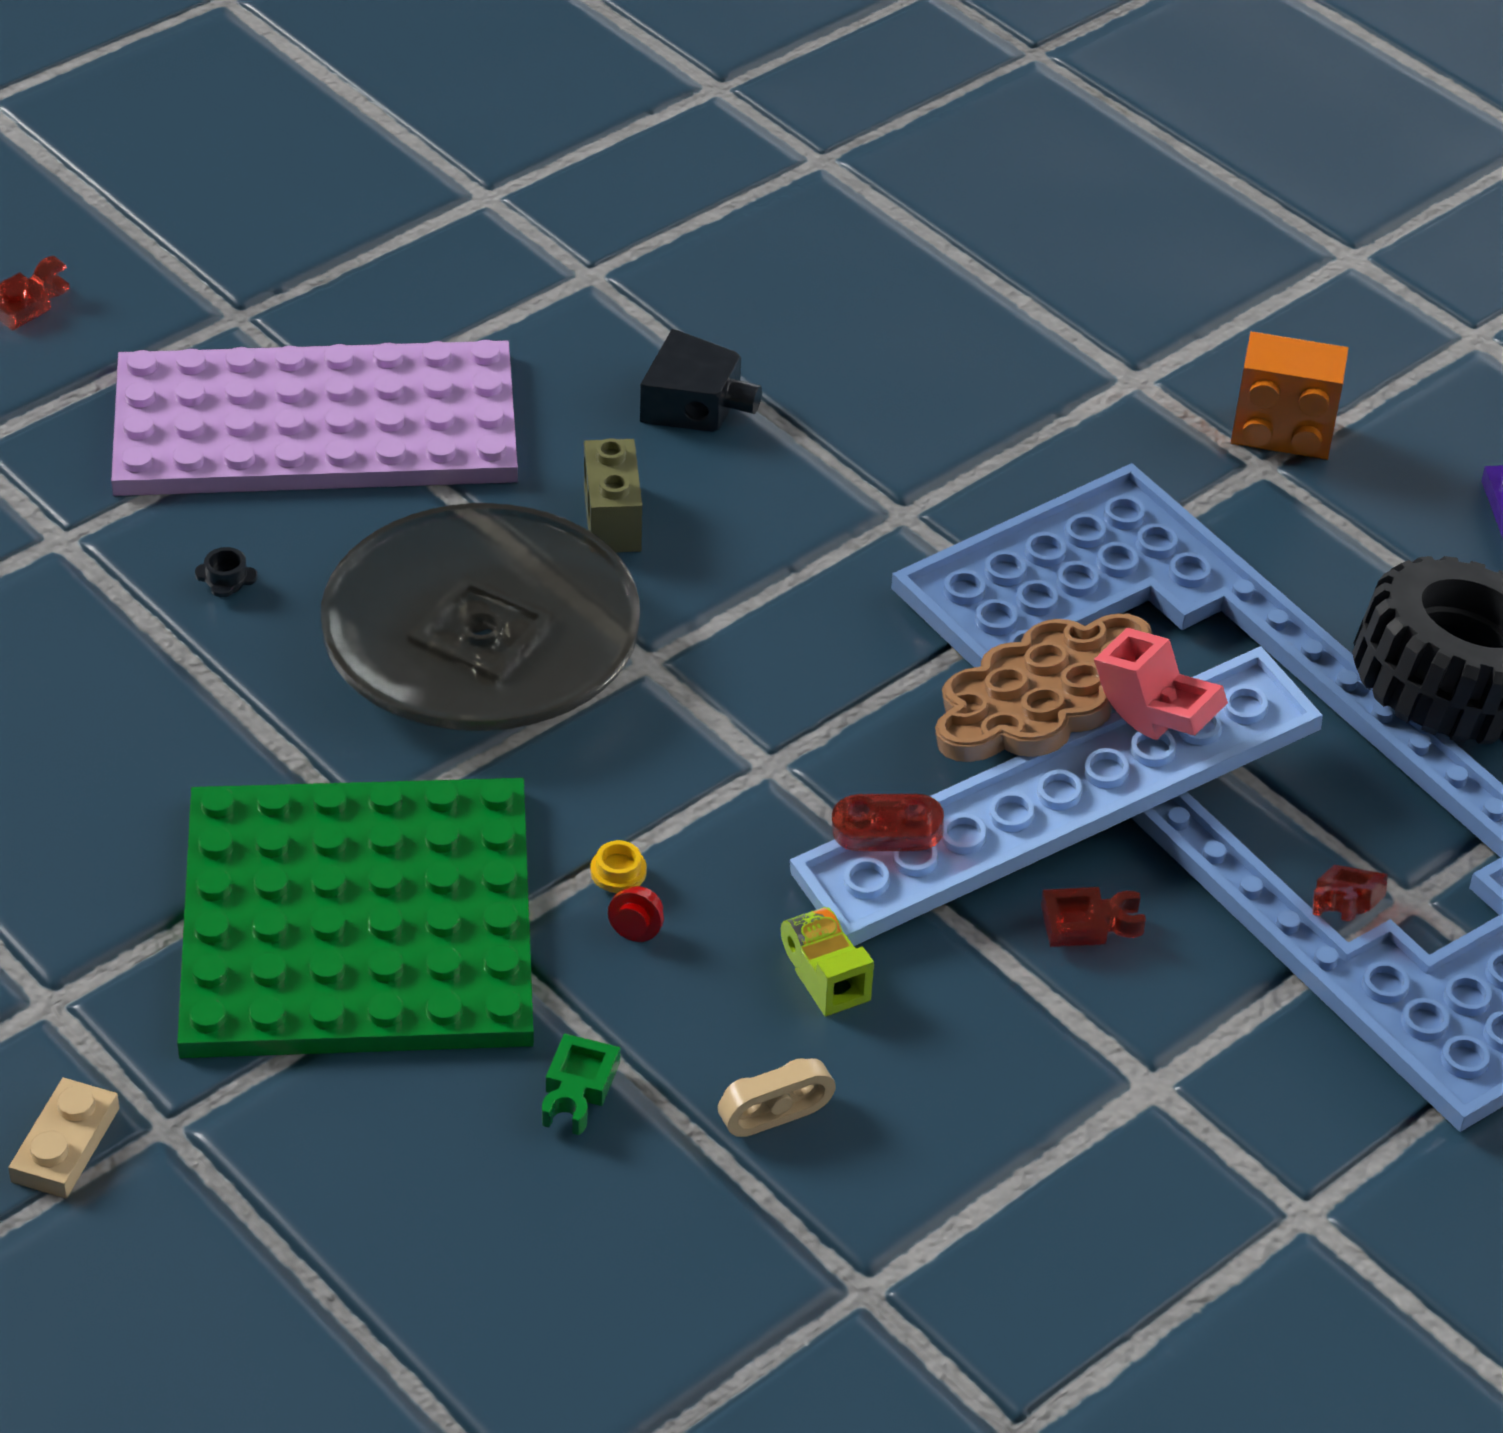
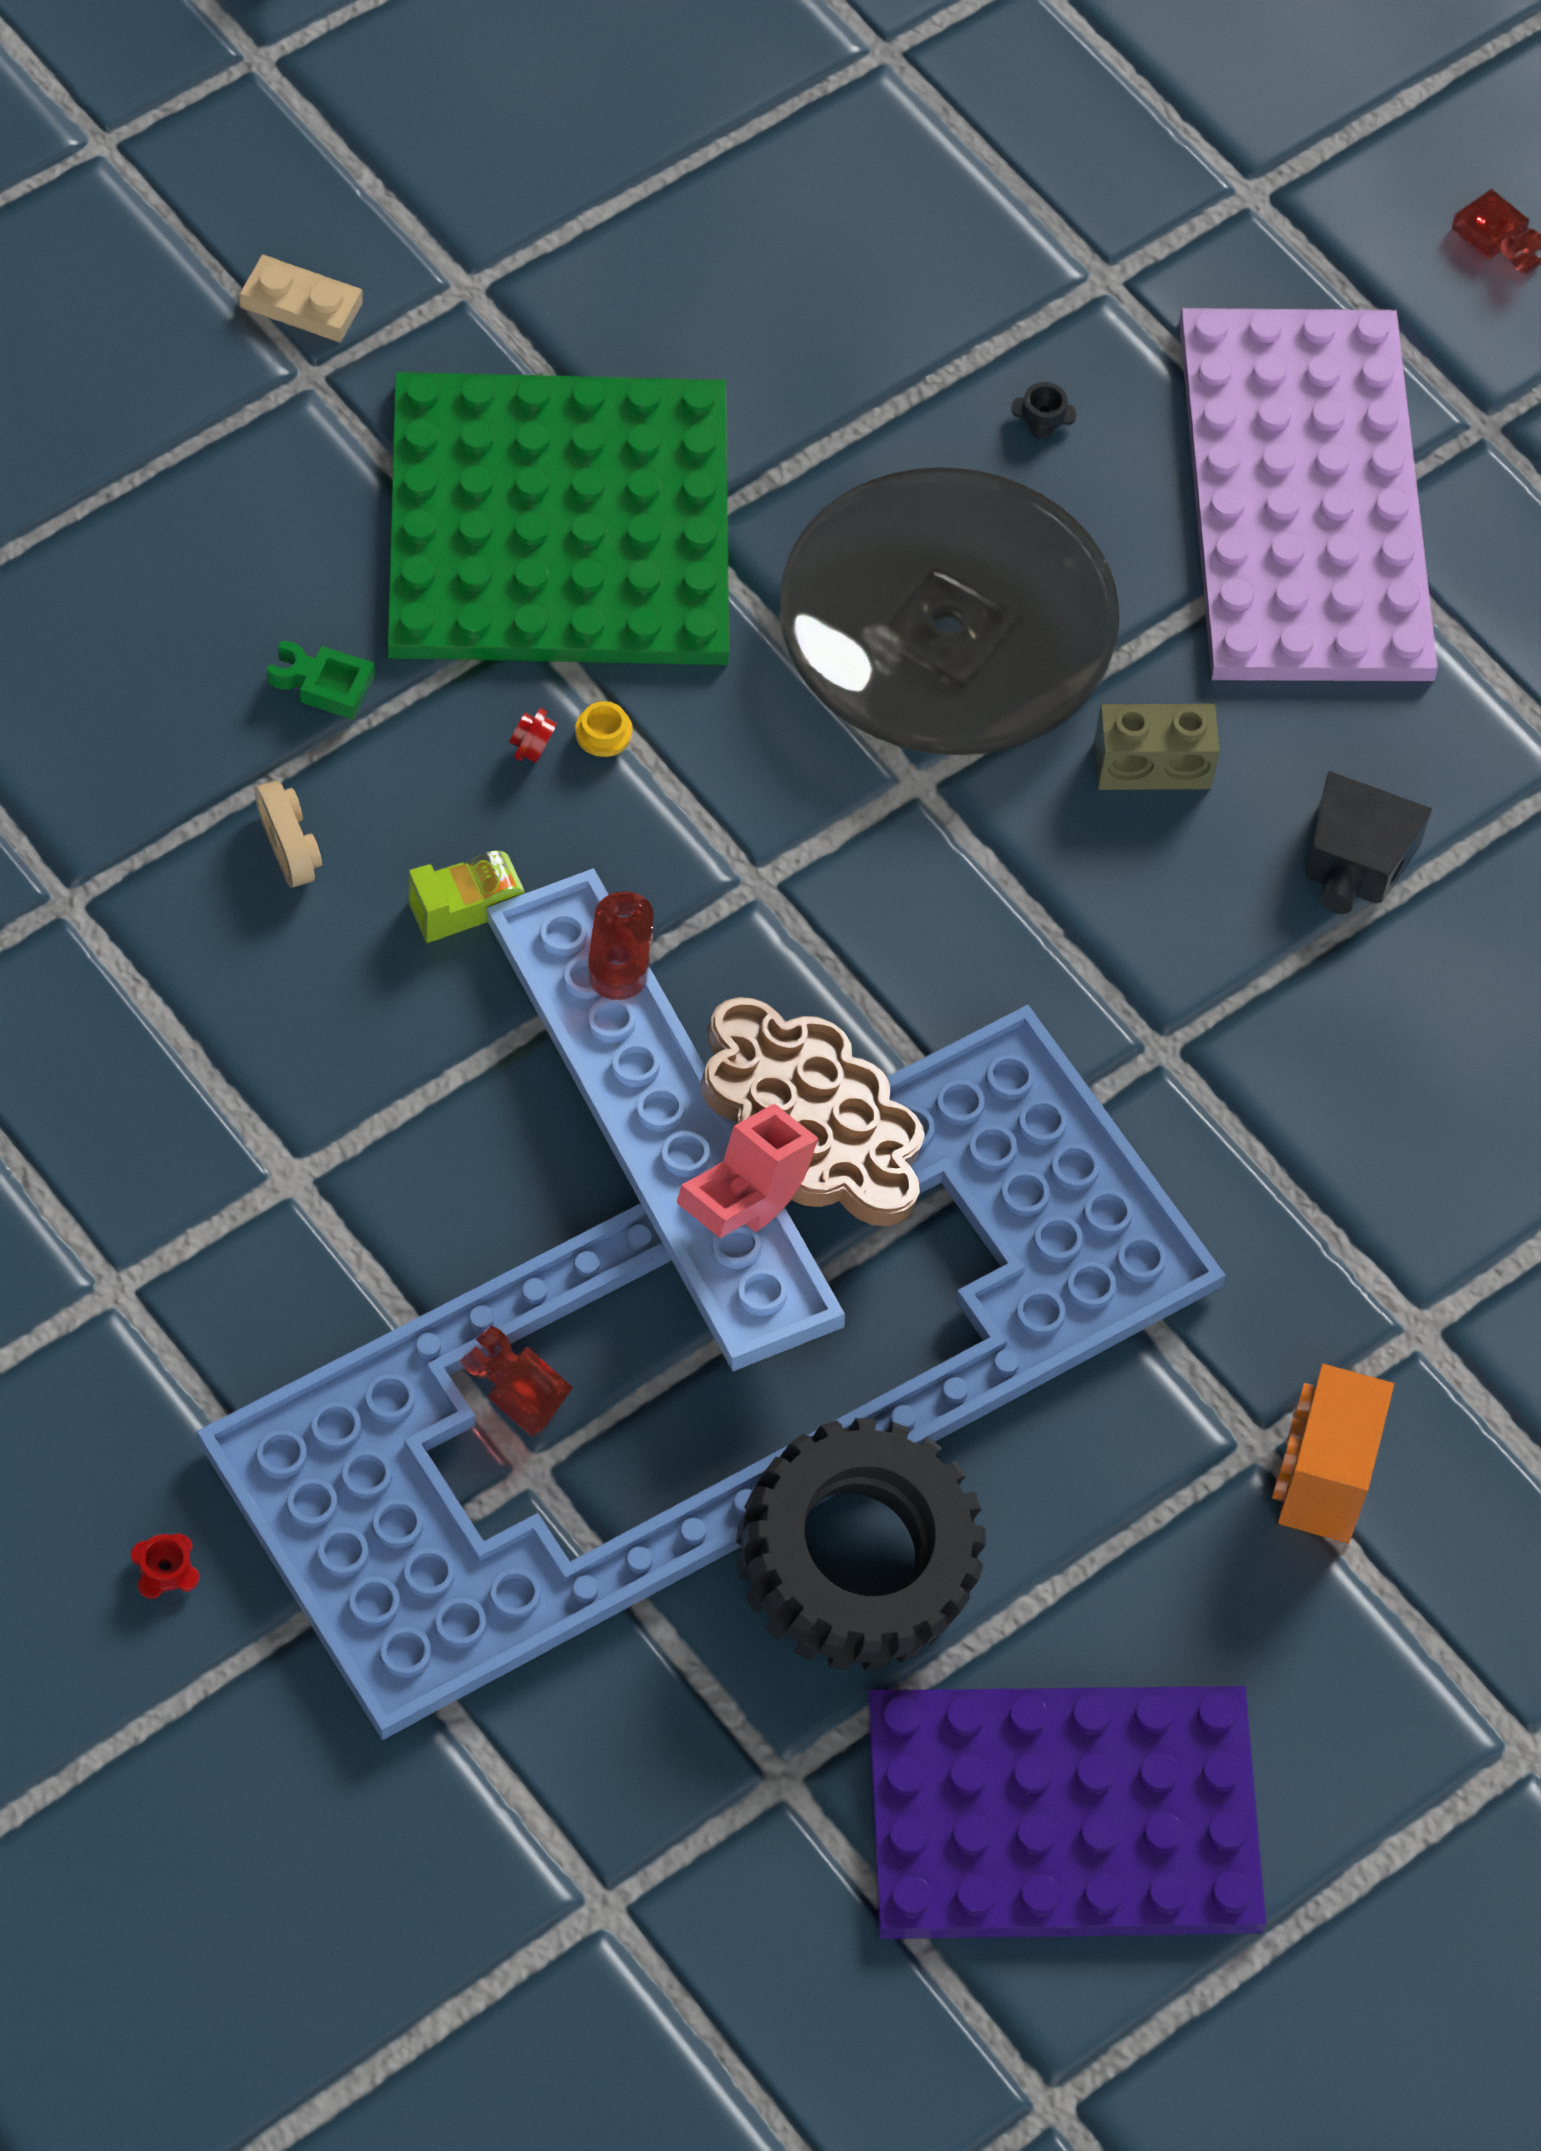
camera: 90 degrees right, 15 degrees up
(1084, 918) = (508, 1133): clear red plate -> none

